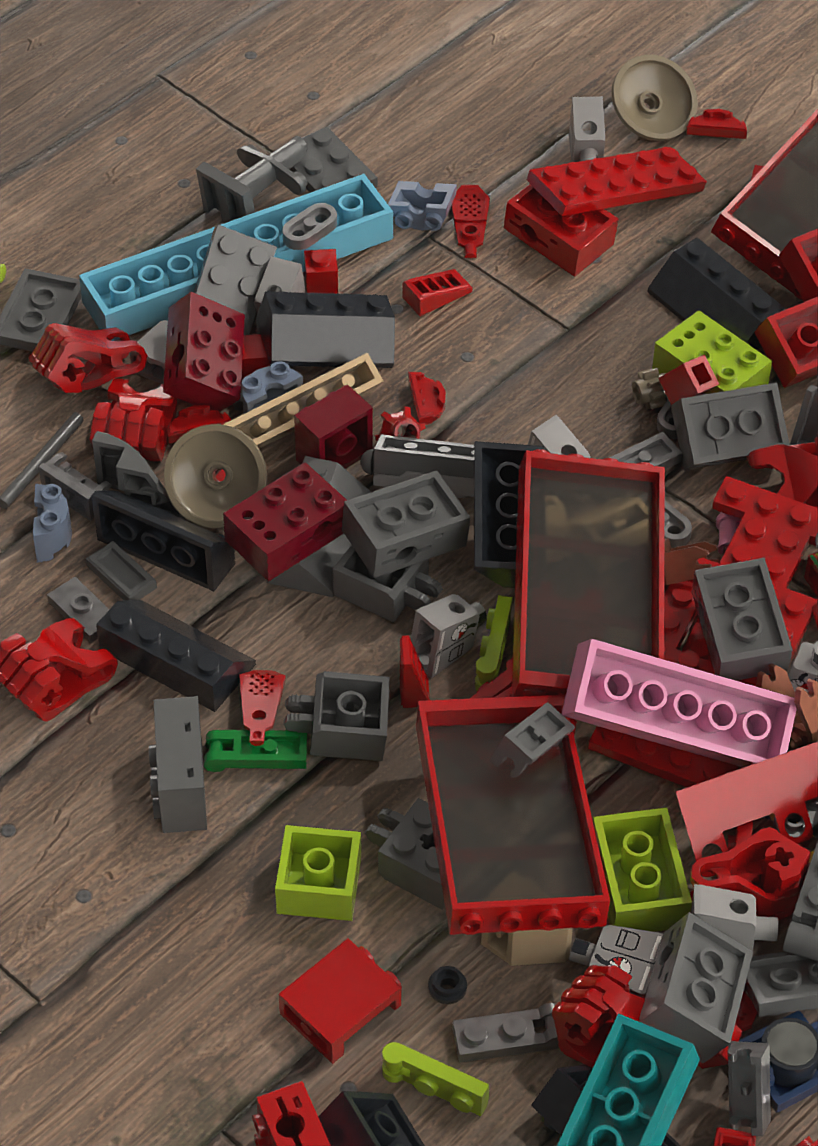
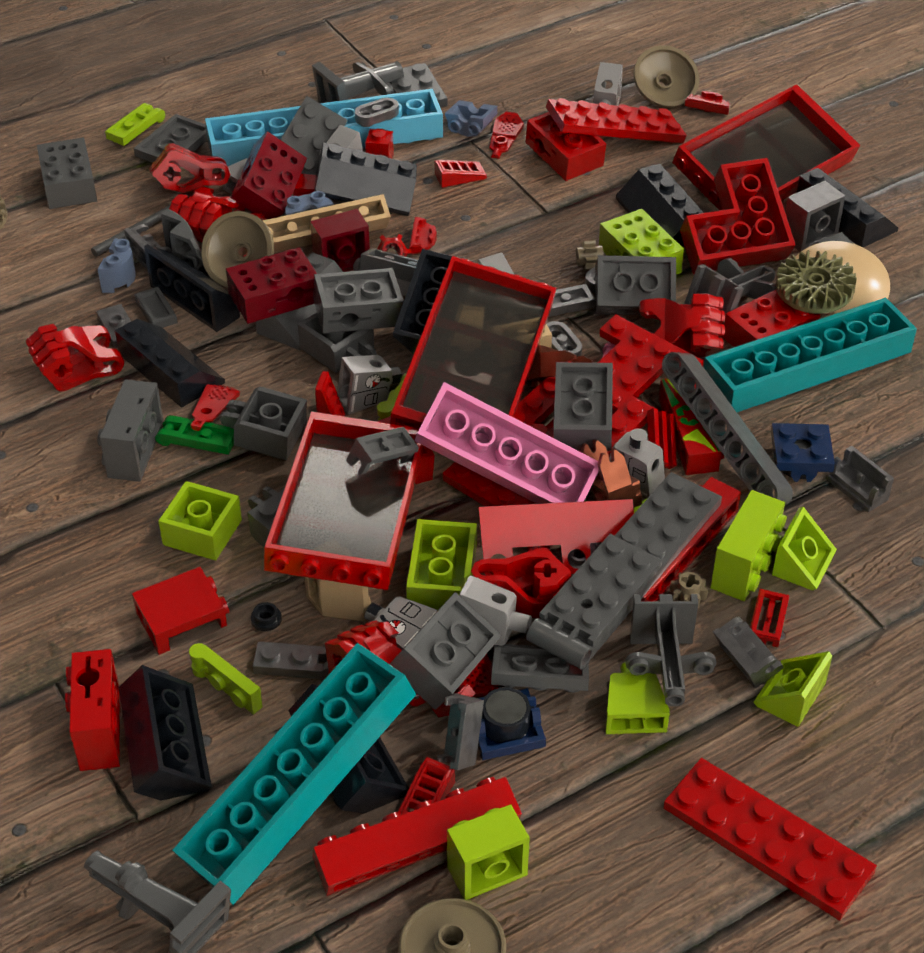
camera: 15 degrees right, 5 degrees down
(689, 379) = (613, 245): red brick -> none

